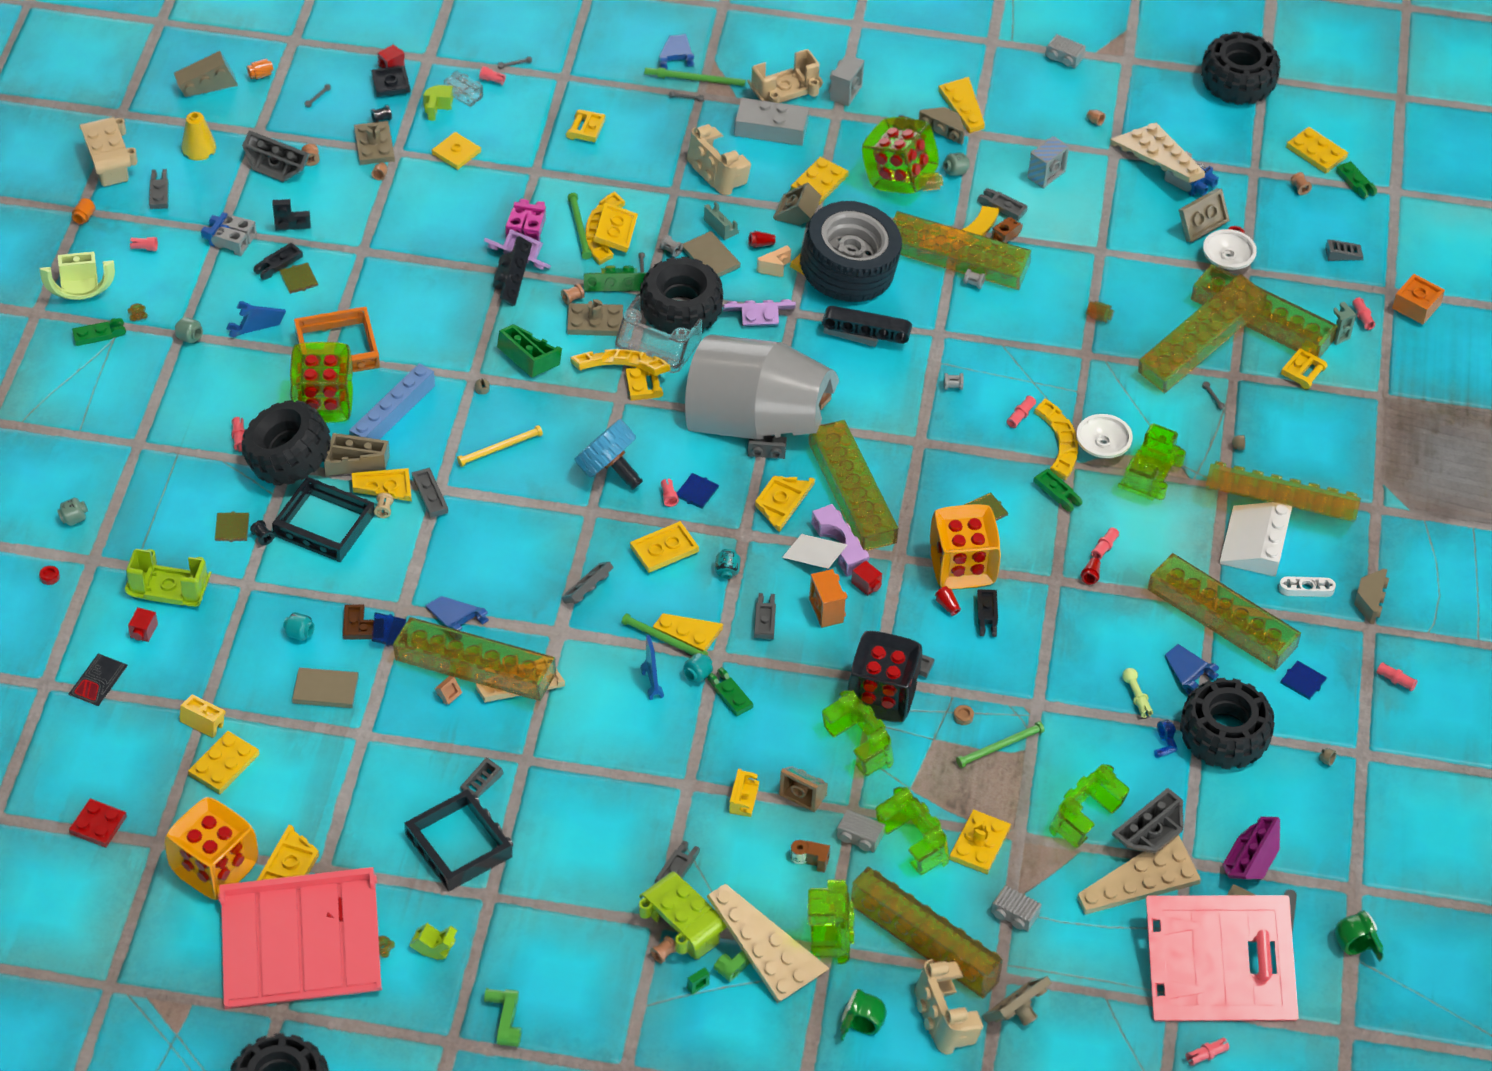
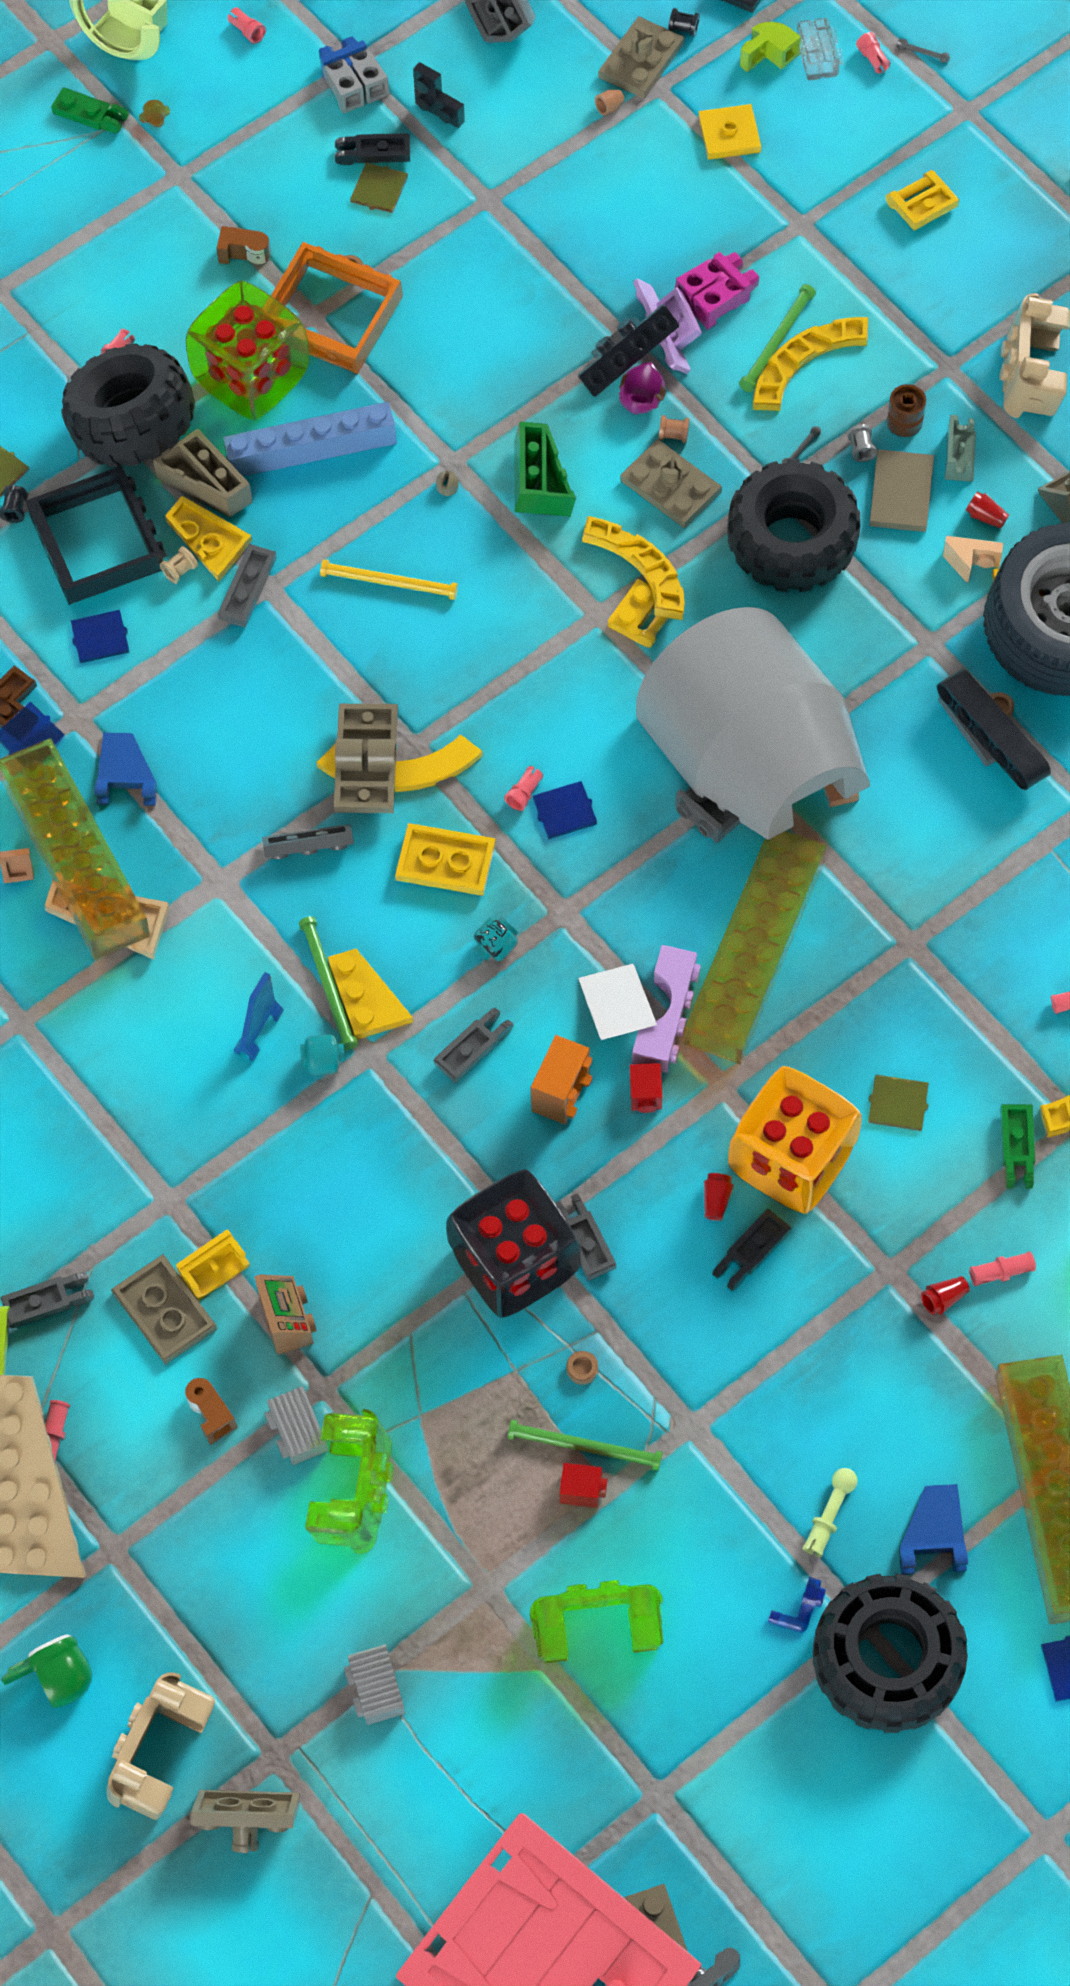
camera: 45 degrees right, 15 degrees up
(188, 330) = (183, 175): sand green head -> none
(255, 319) = (266, 211): blue flag -> none
(256, 343) = (242, 245): none -> dark orange leg
(314, 154) = (546, 25): nougat wheel -> none
(374, 565) = (99, 636): none -> clear blue piece
(539, 284) = (642, 389): none -> magenta hair
(579, 526) = (365, 758): none -> dark tan plate
(597, 528) = (422, 771): none -> yellow tile
(608, 451) = (486, 681): dark azure wheel -> none
(614, 279) = (744, 440): green bracket -> none
(615, 227) = (814, 370): yellow plate -> none
(671, 348) = (704, 586): clear windscreen -> none
(679, 218) = (906, 410): none -> reddish brown wheel
(730, 692) = (332, 1118): green hinge -> none
(739, 830) = (164, 1309): none -> dark tan tile
(759, 313) = (881, 617): lavender bracket -> none
(782, 498) = (653, 898): yellow wing -> none
(831, 921) = (116, 1521): clear neon green container -> none
(849, 711) = (415, 1333): clear neon green container -> none
(925, 930) = (228, 1628): clear yellow brick -> none
(953, 381) = (1029, 880): light grey bush -> none
(980, 841) = (429, 1556): yellow plate -> none
(1018, 760) = (582, 1485): none -> red brick
(1142, 877) = (595, 1775): tan wing -> none
(1153, 824) = (648, 1715): dark grey wedge -> none
(1254, 850) = (743, 1859): magenta wedge -> none
(1328, 756) = (990, 1805): dark tan hinge -> none

